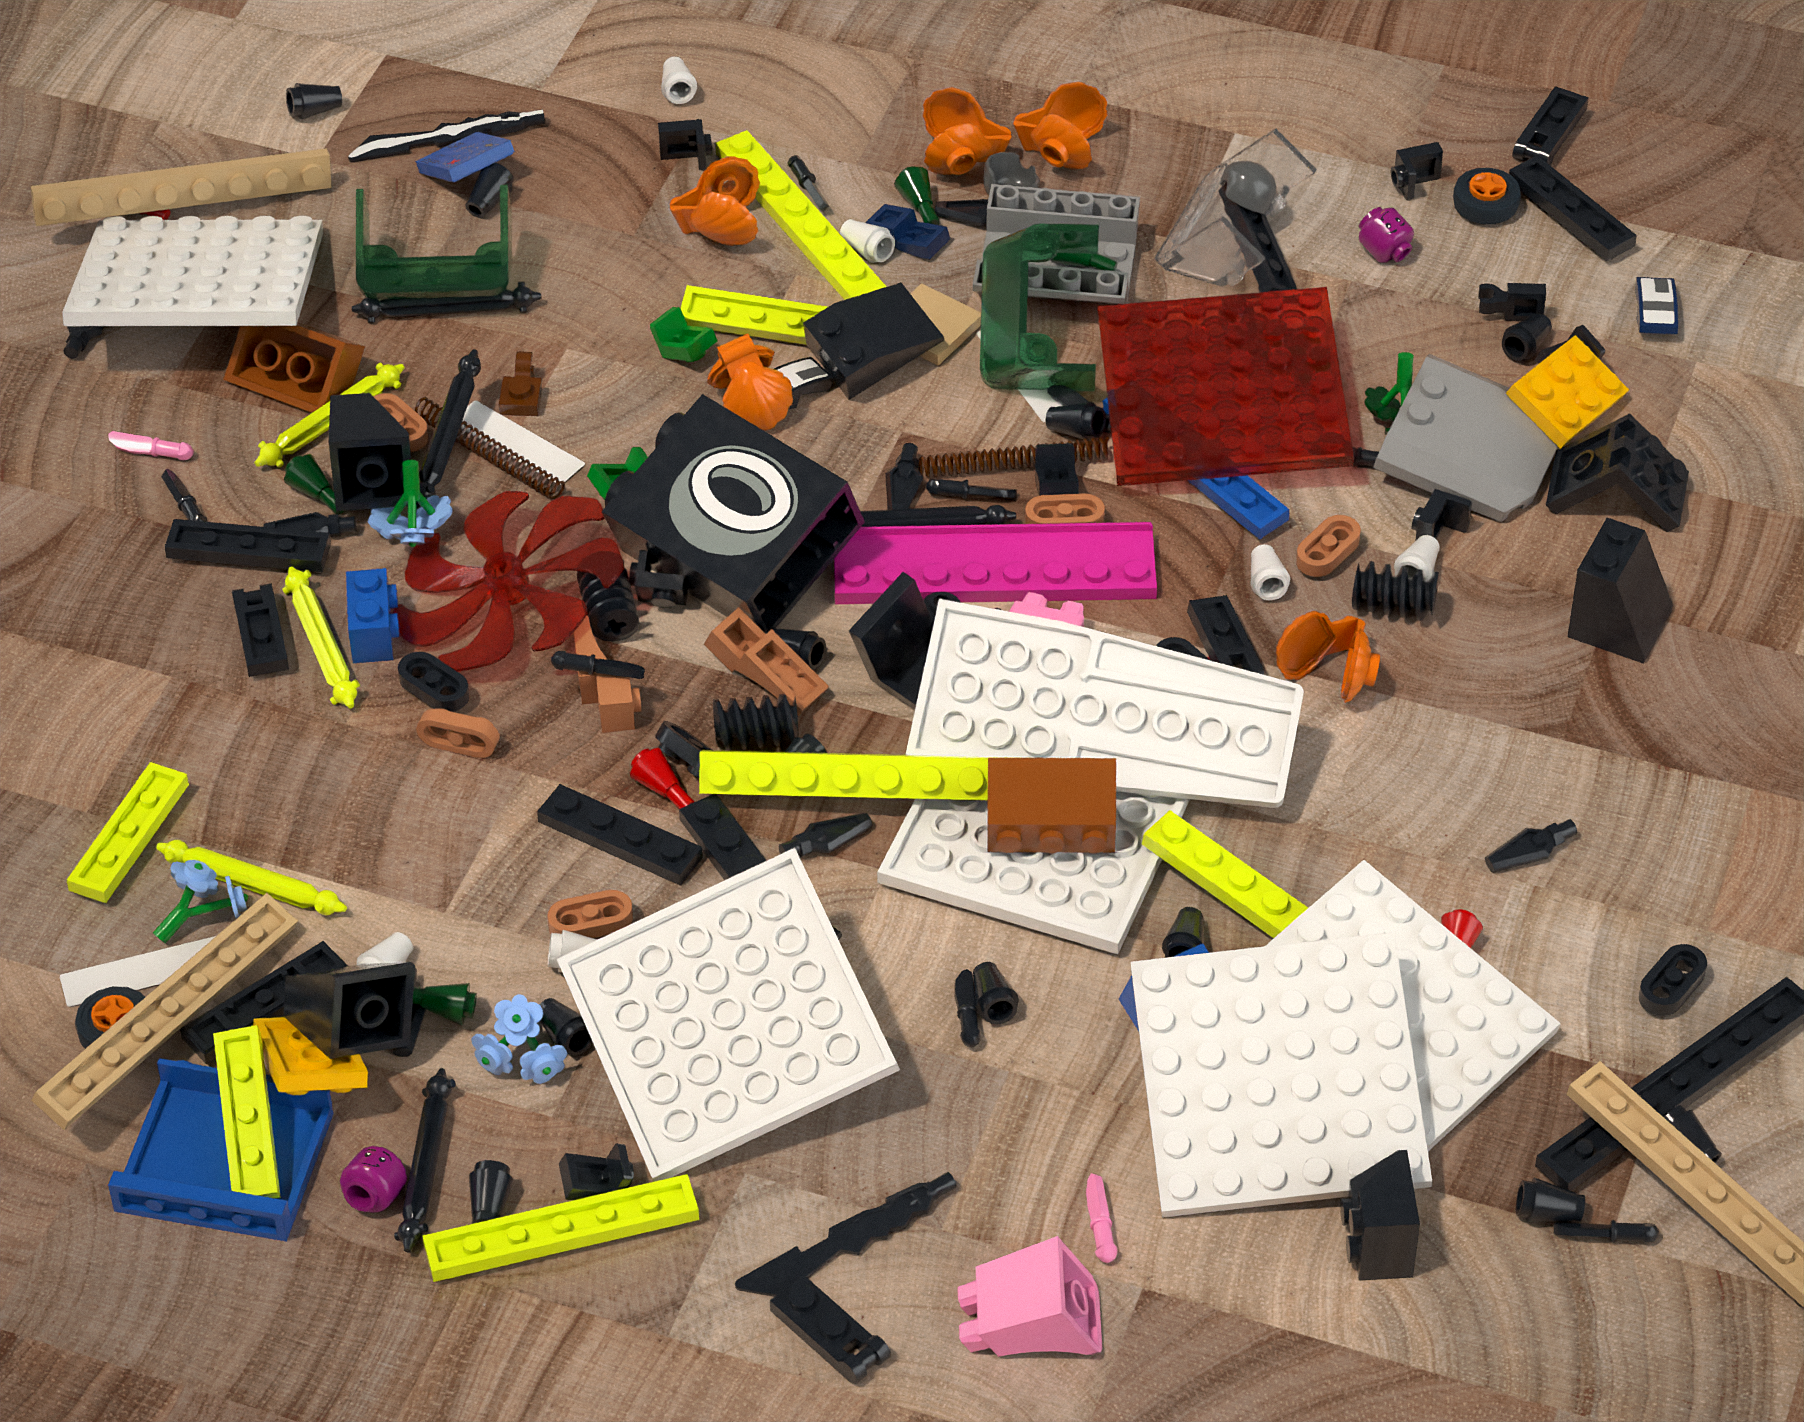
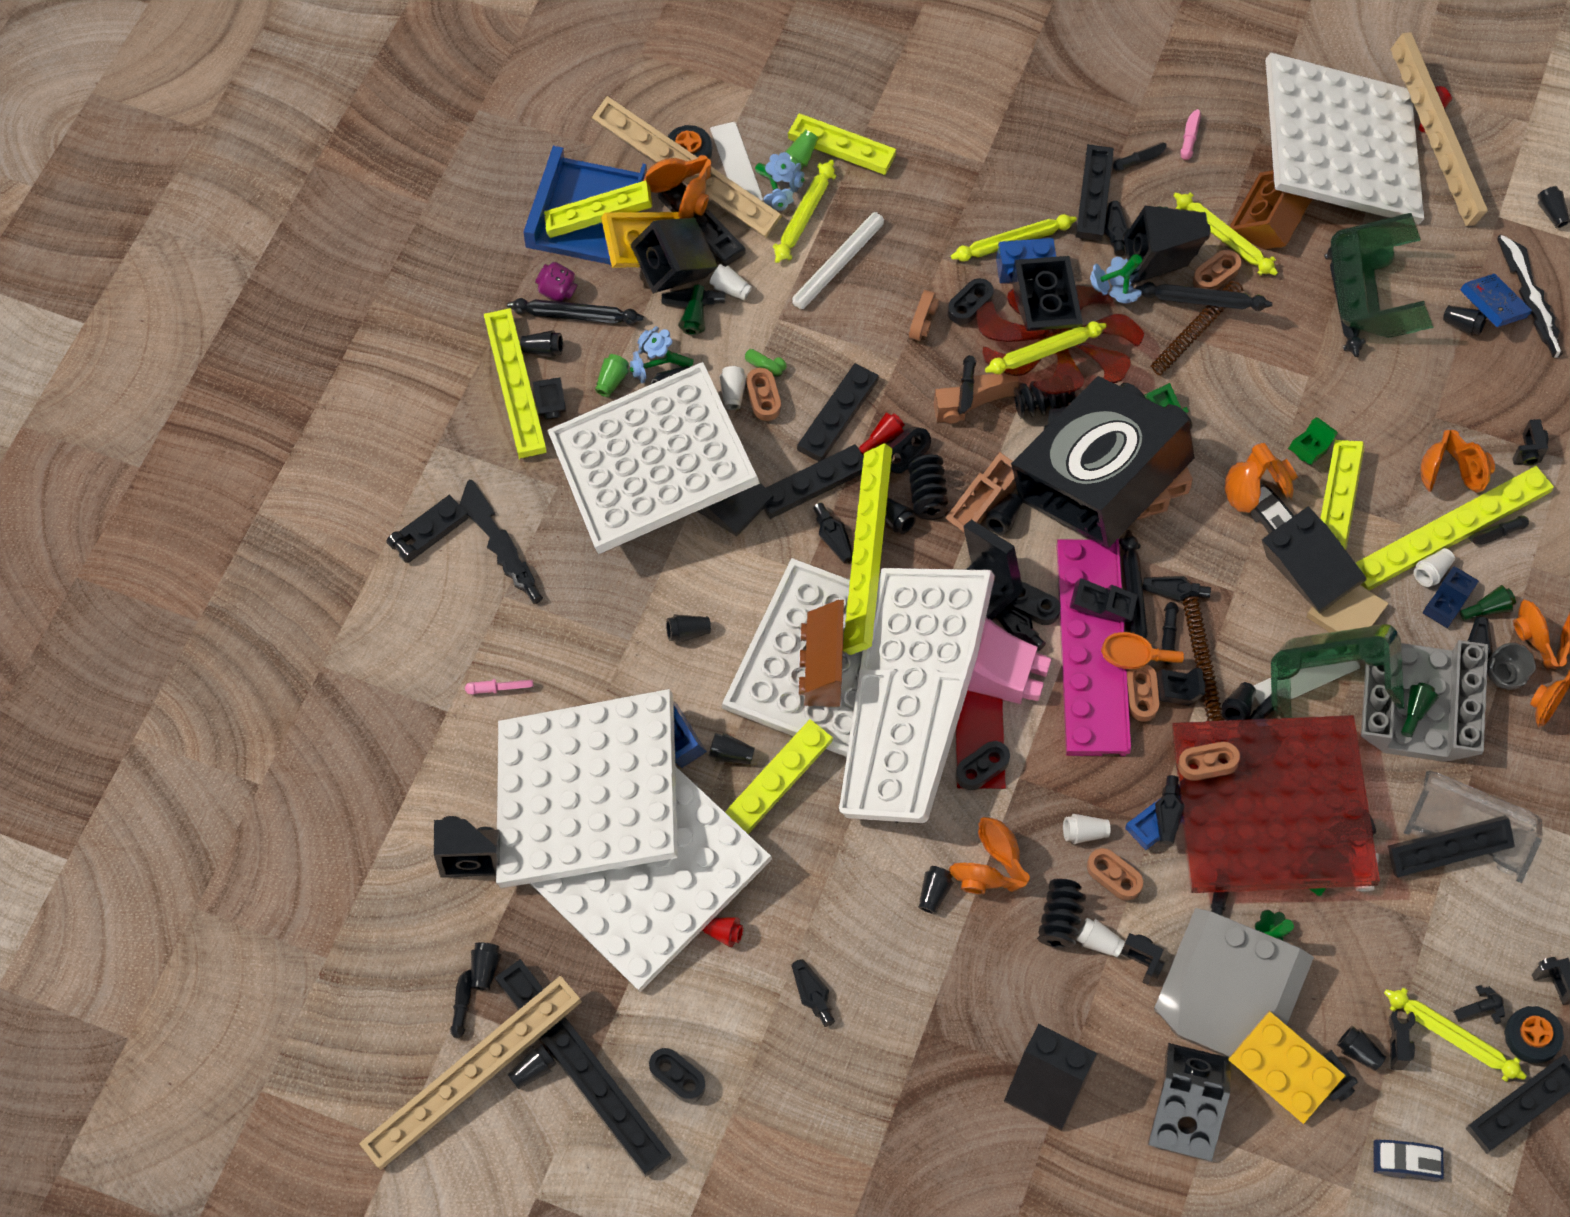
camera: 90 degrees right, 15 degrees up
(142, 873) = (802, 148): none -> bright green cone
(242, 980) = (672, 171): none -> orange animal
(260, 630) = (1018, 203): black plate -> none
(347, 836) = (838, 260): none -> white axle
(451, 576) = (1046, 293): none -> black slope
(521, 441) = (1209, 348): white sticker -> none
(523, 392) = (1256, 347): reddish brown plate -> none
(532, 919) = (761, 361): none -> bright green arm
(544, 574) = (1045, 347): none -> neon yellow wheel
(550, 1103) = (611, 374): none -> bright green cone
(938, 538) = (1103, 602): none -> black slope
(966, 1007) = (663, 613): black piece -> none
(1014, 512) = (1133, 651): none -> orange piece
(1032, 1303) = (421, 641): bright pink hips -> none
(1183, 426) = (1206, 759): none -> nougat plate
(1223, 633) = (1012, 793): black plate -> none
(1243, 481) = (1169, 811): none -> black piece
(1249, 185) = (1502, 834): dark grey hair -> none
(1370, 719) = (935, 888): none -> black cone
(1386, 235) = (1472, 946): magenta head -> none
(1450, 227) = (1492, 1002): none -> black piece
(1494, 261) = (1455, 1034): none -> neon yellow wheel

